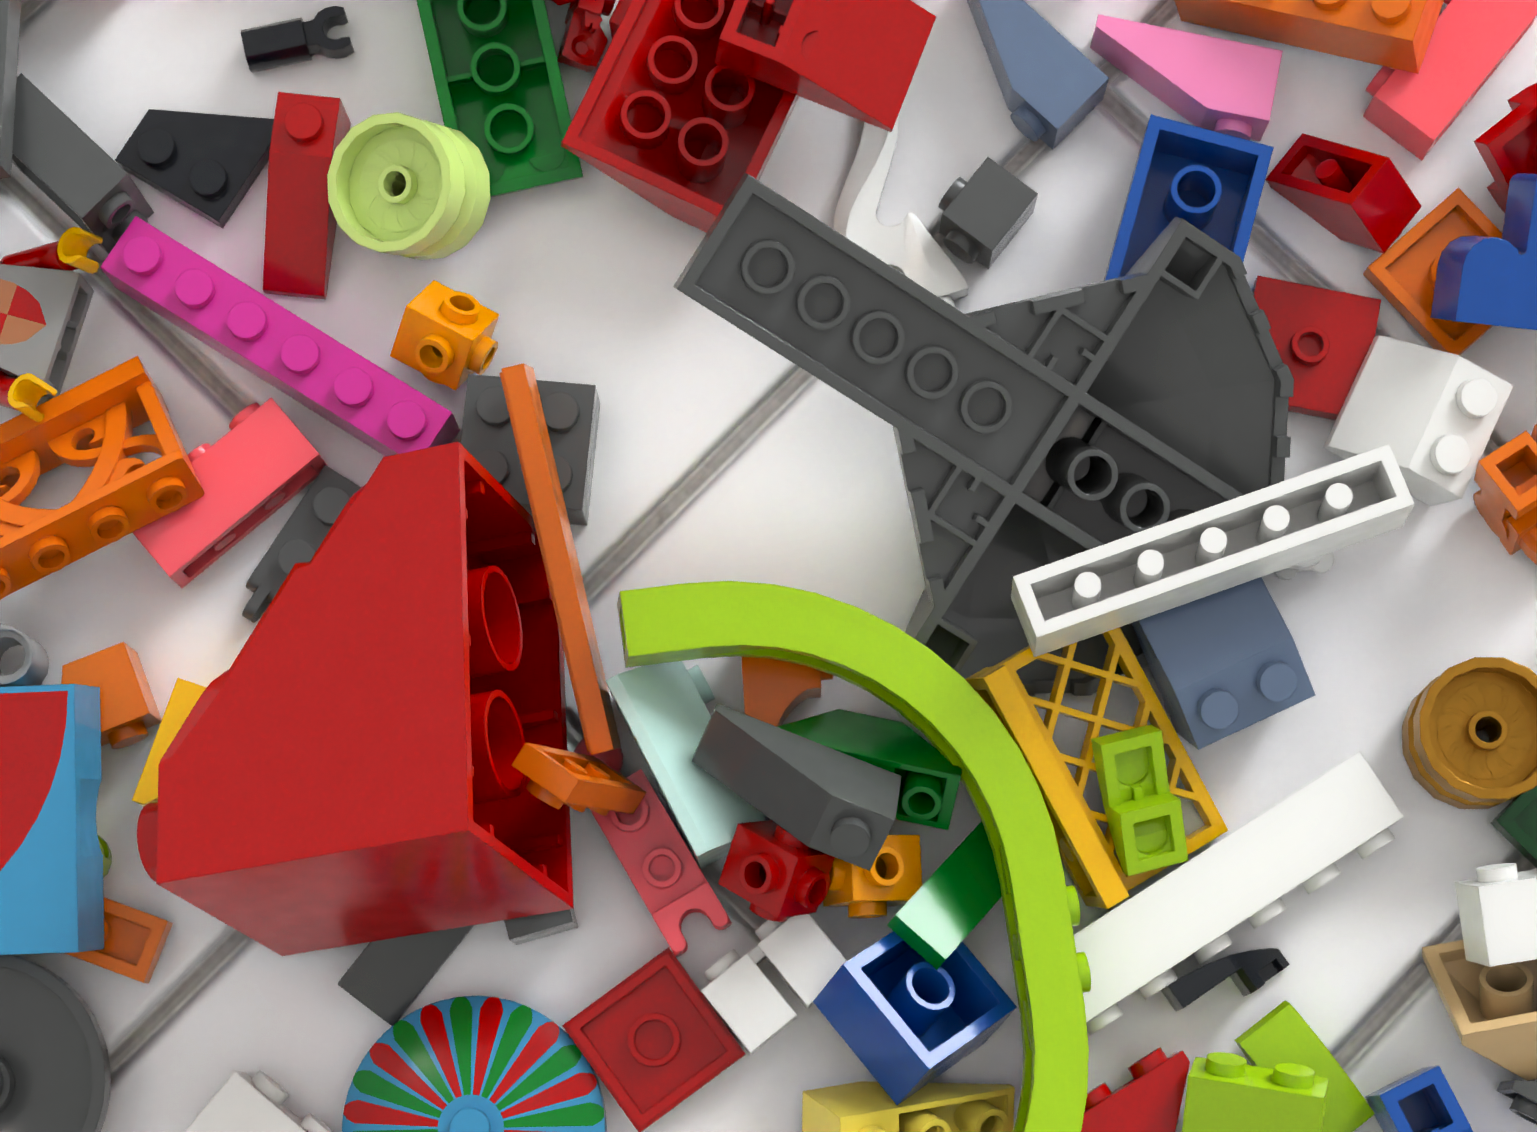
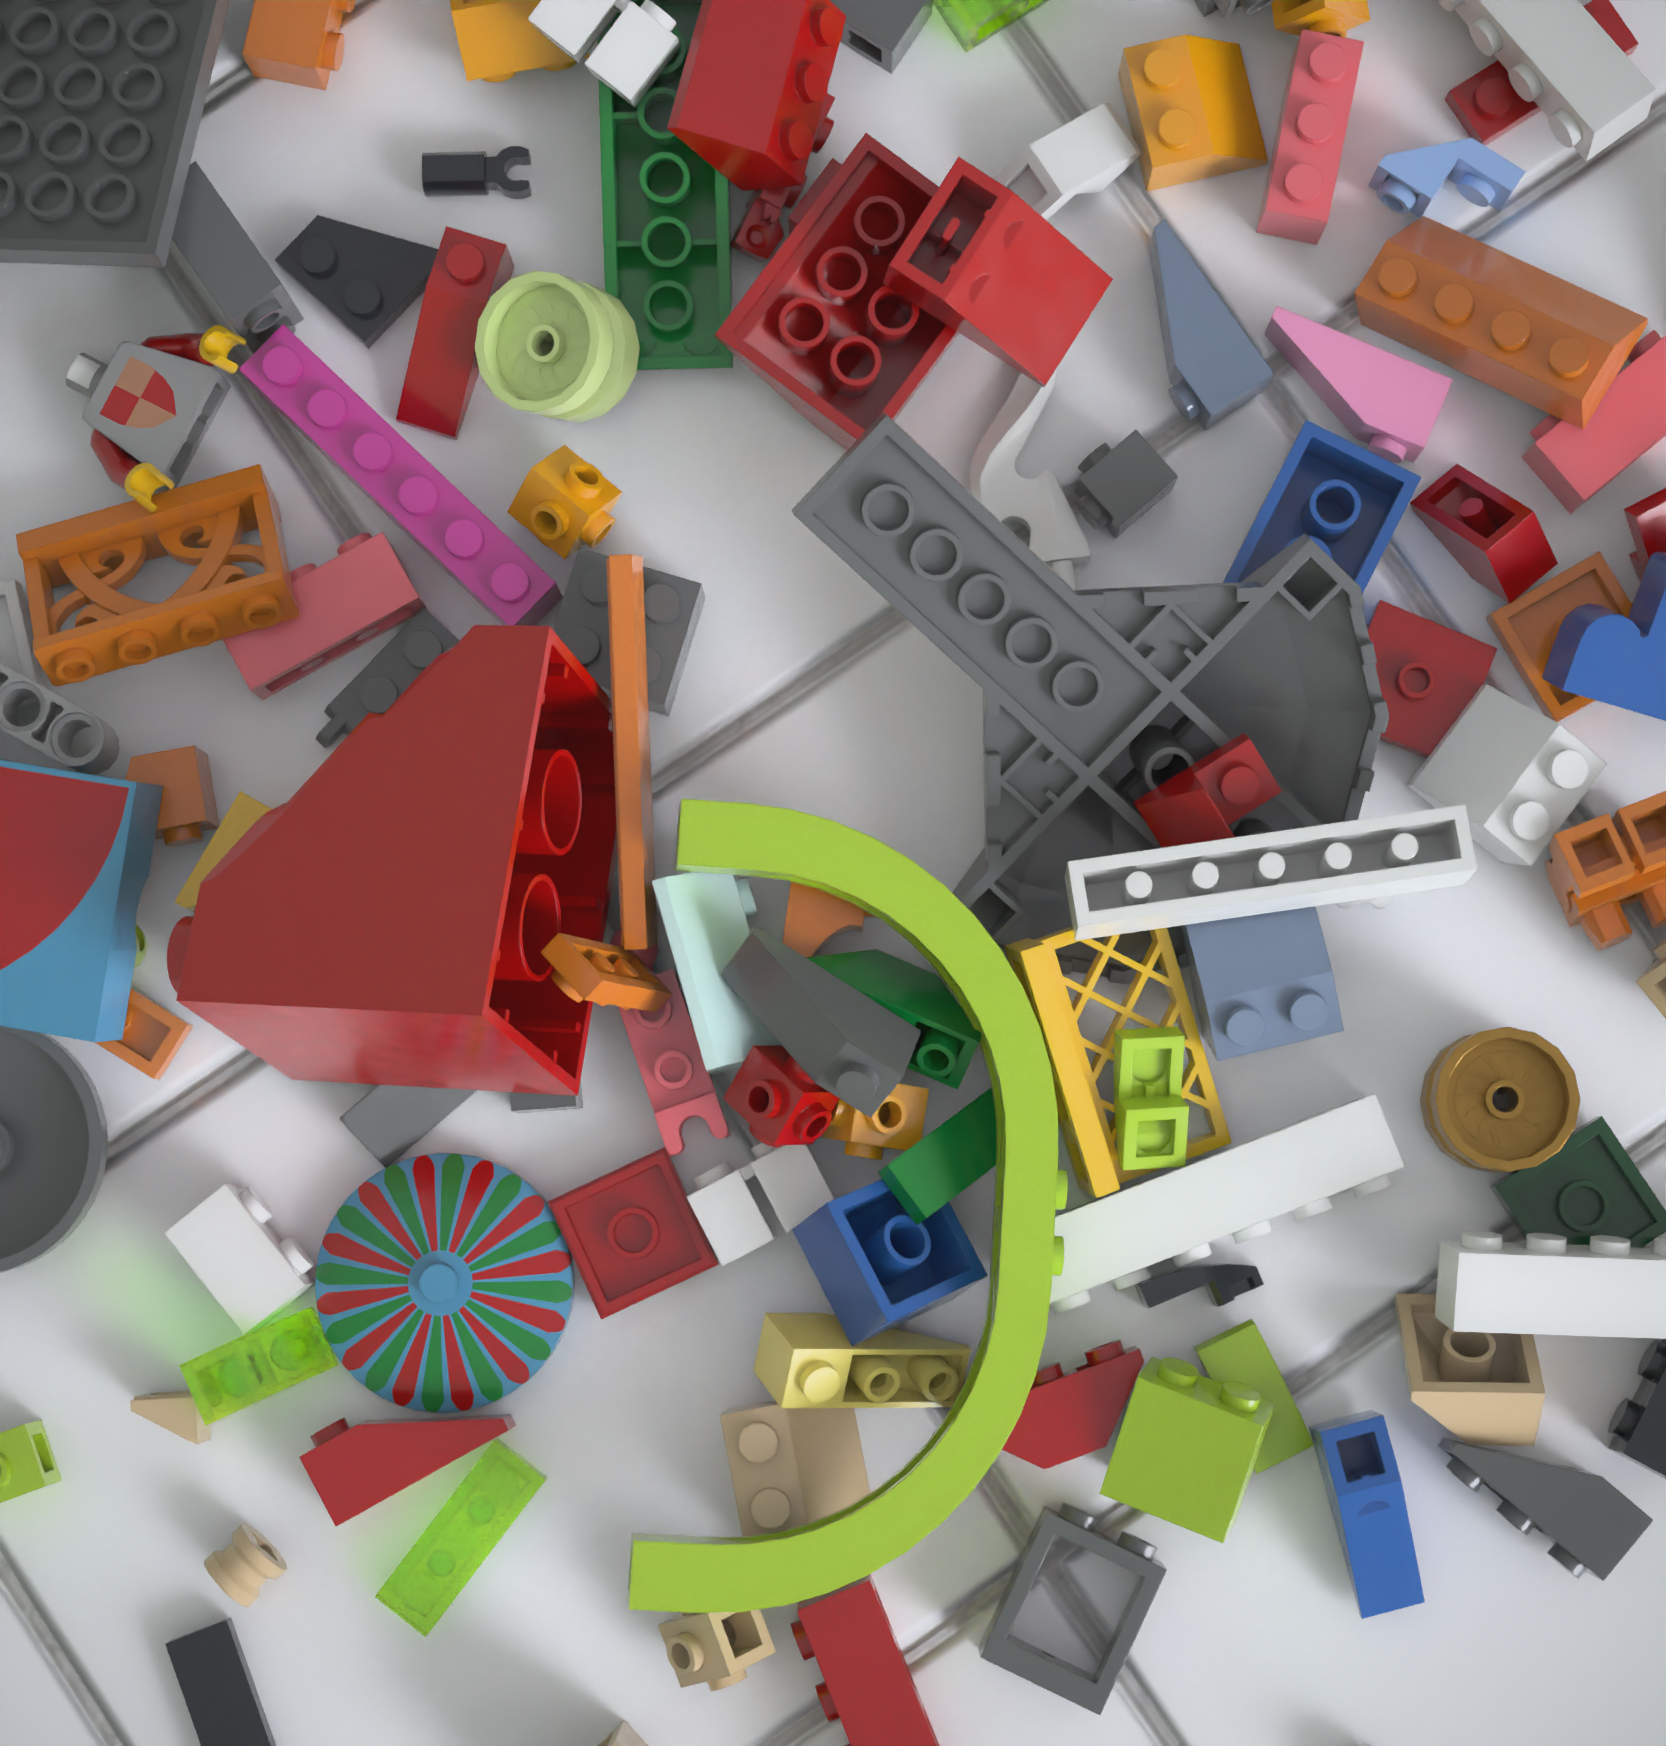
camera: 15 degrees right, 5 degrees up
(1135, 488) = (1209, 795): none -> red slope

